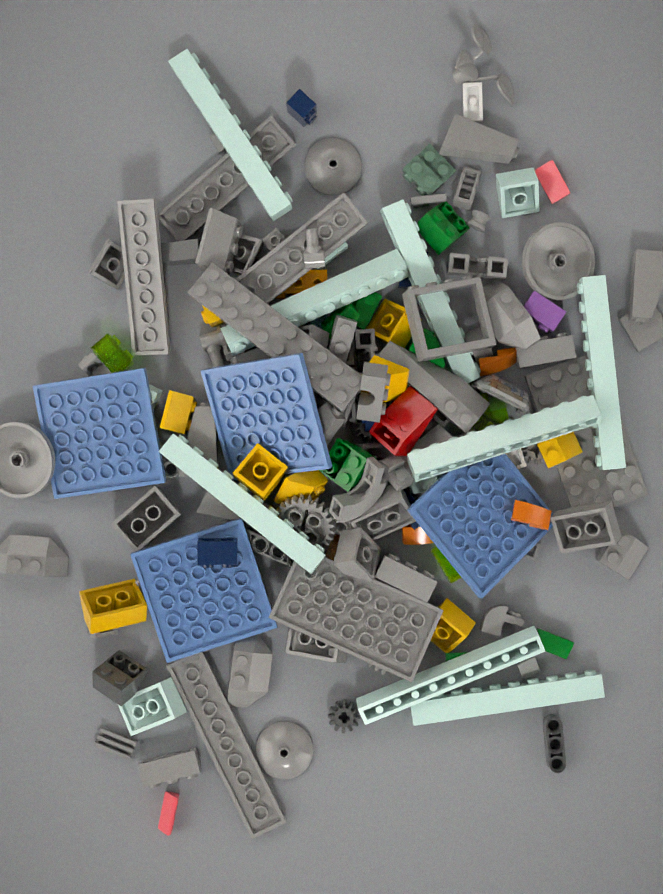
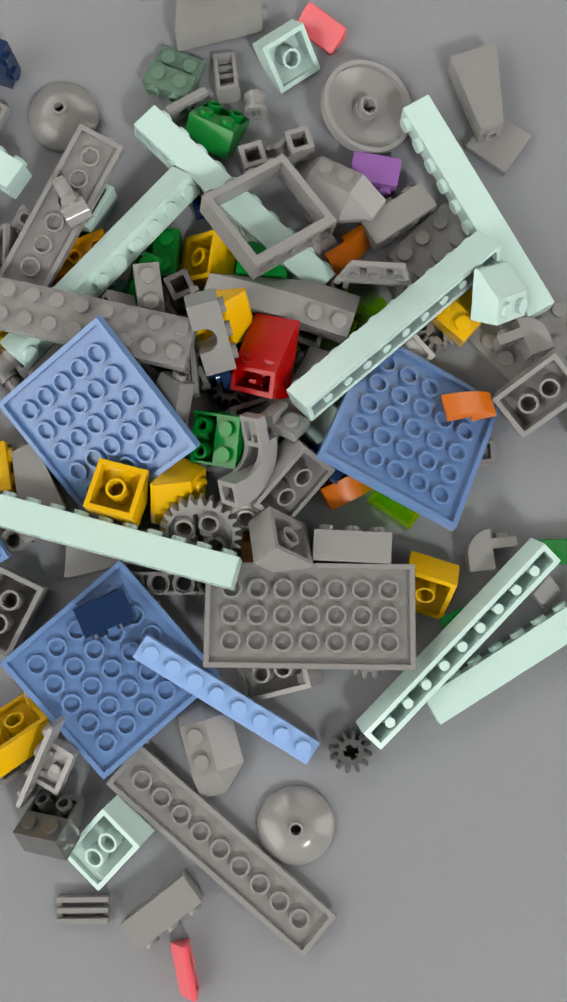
camera: 20 degrees left, 5 degrees down
(136, 638) = (51, 765): none -> light grey bracket
(274, 644) = (225, 698): none -> light blue plate
(586, 447) = (497, 294): none -> light aqua slope
(599, 482) = (530, 336): none -> light grey brick

